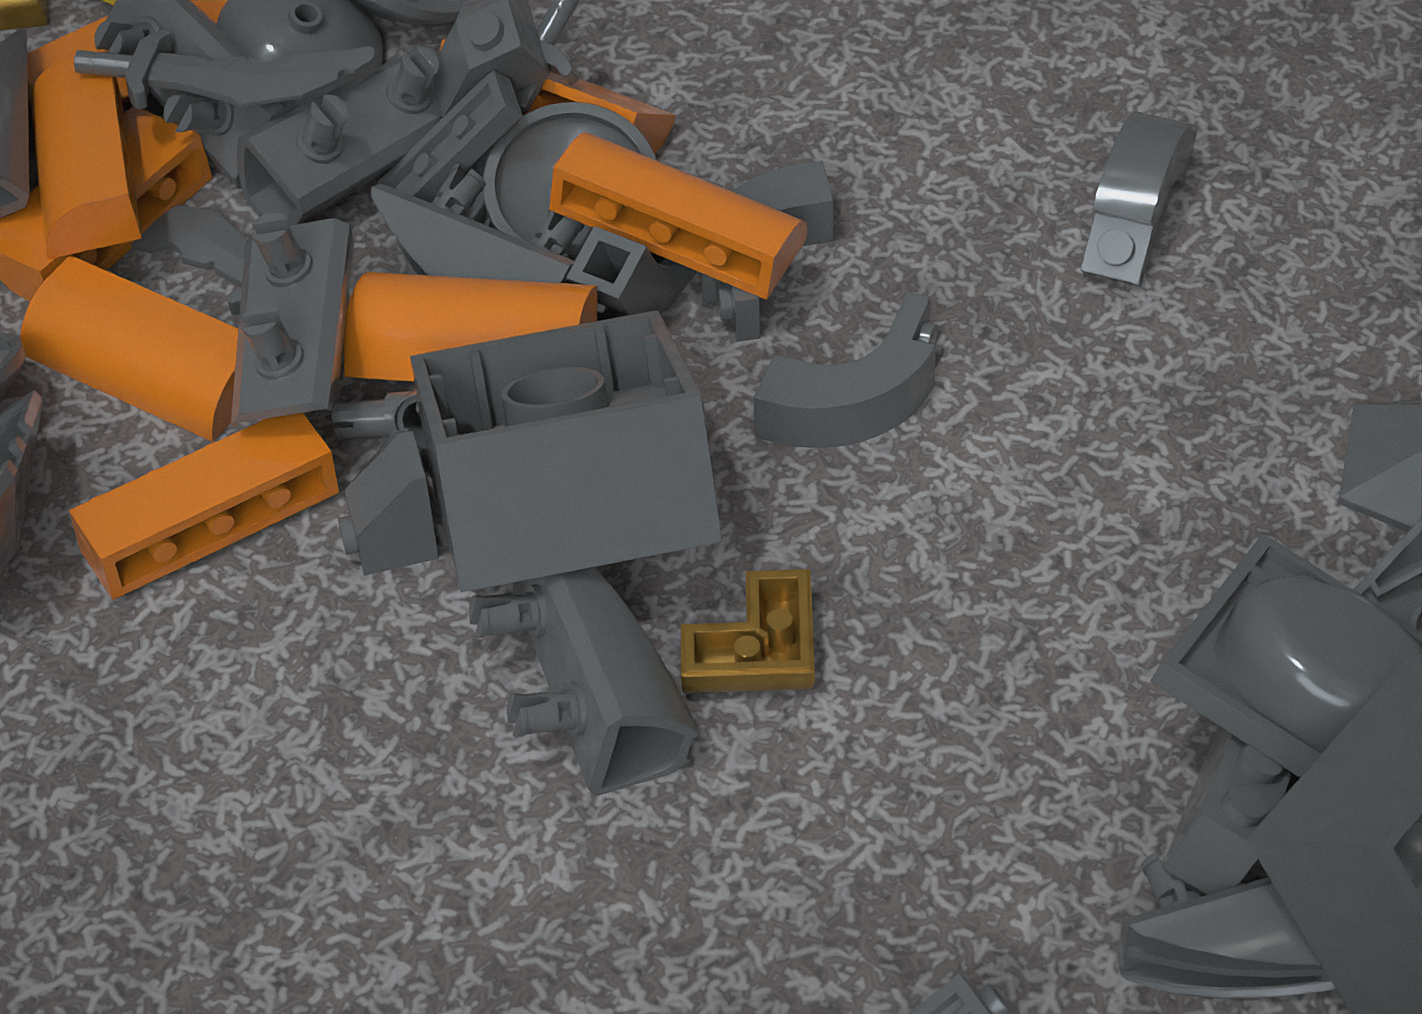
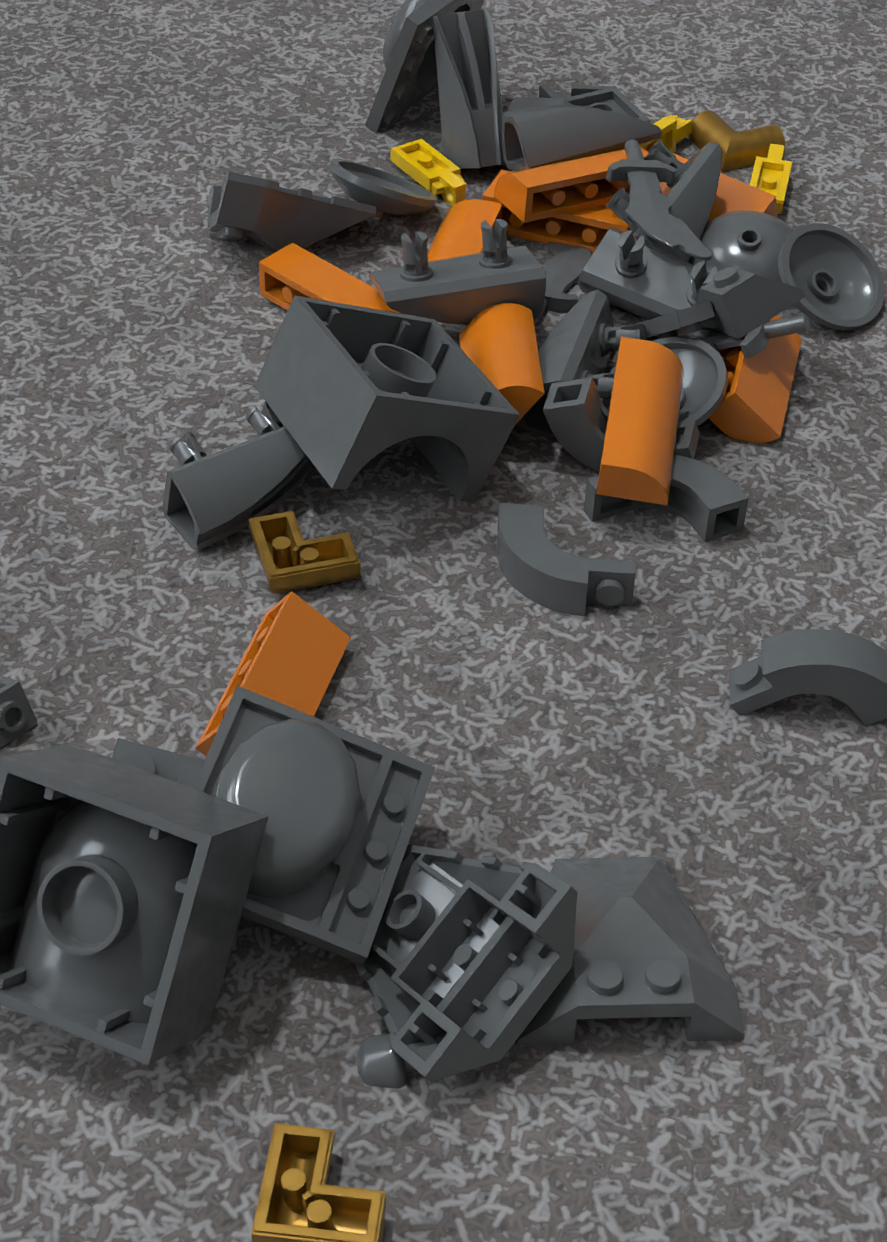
camera: 70 degrees right, 5 degrees down
(1015, 707) = (285, 661): none -> orange brick

